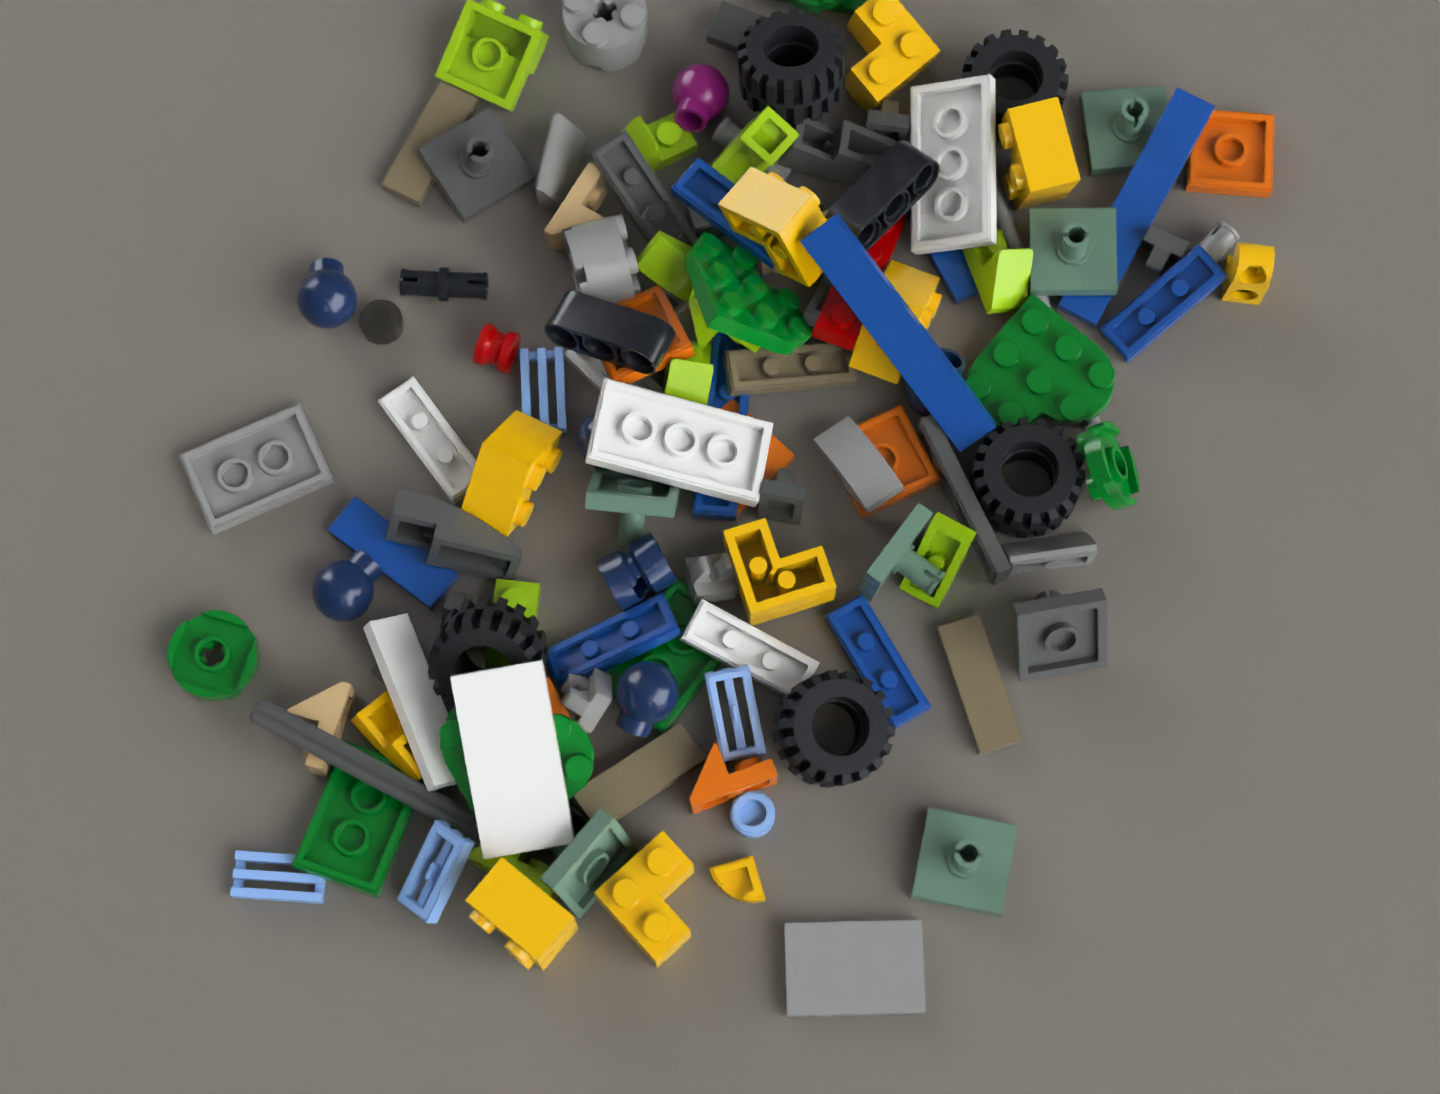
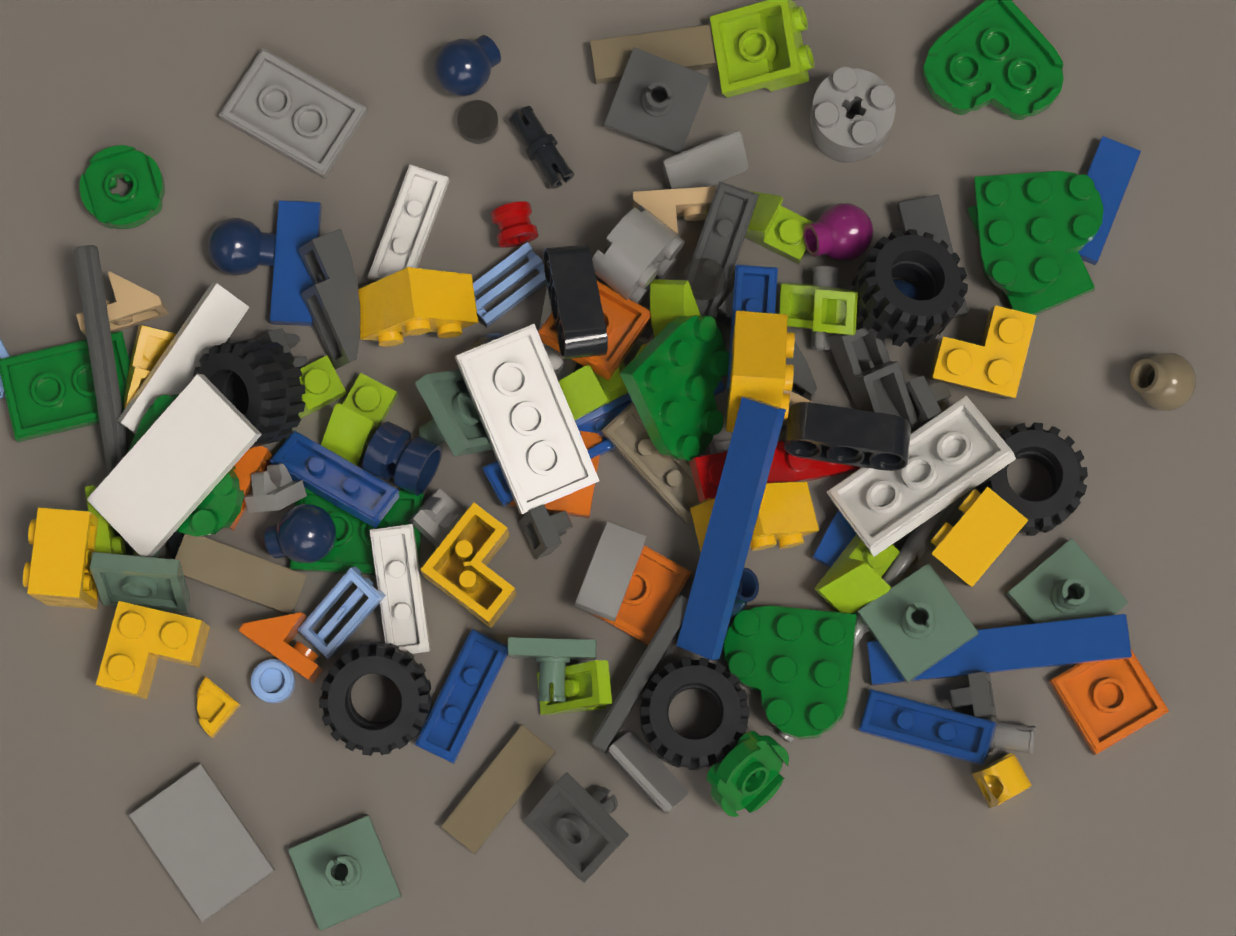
camera: 55 degrees right, 5 degrees up
(440, 875) = (59, 476): light blue tile -> none
(571, 588) = (358, 418): none -> lime slope

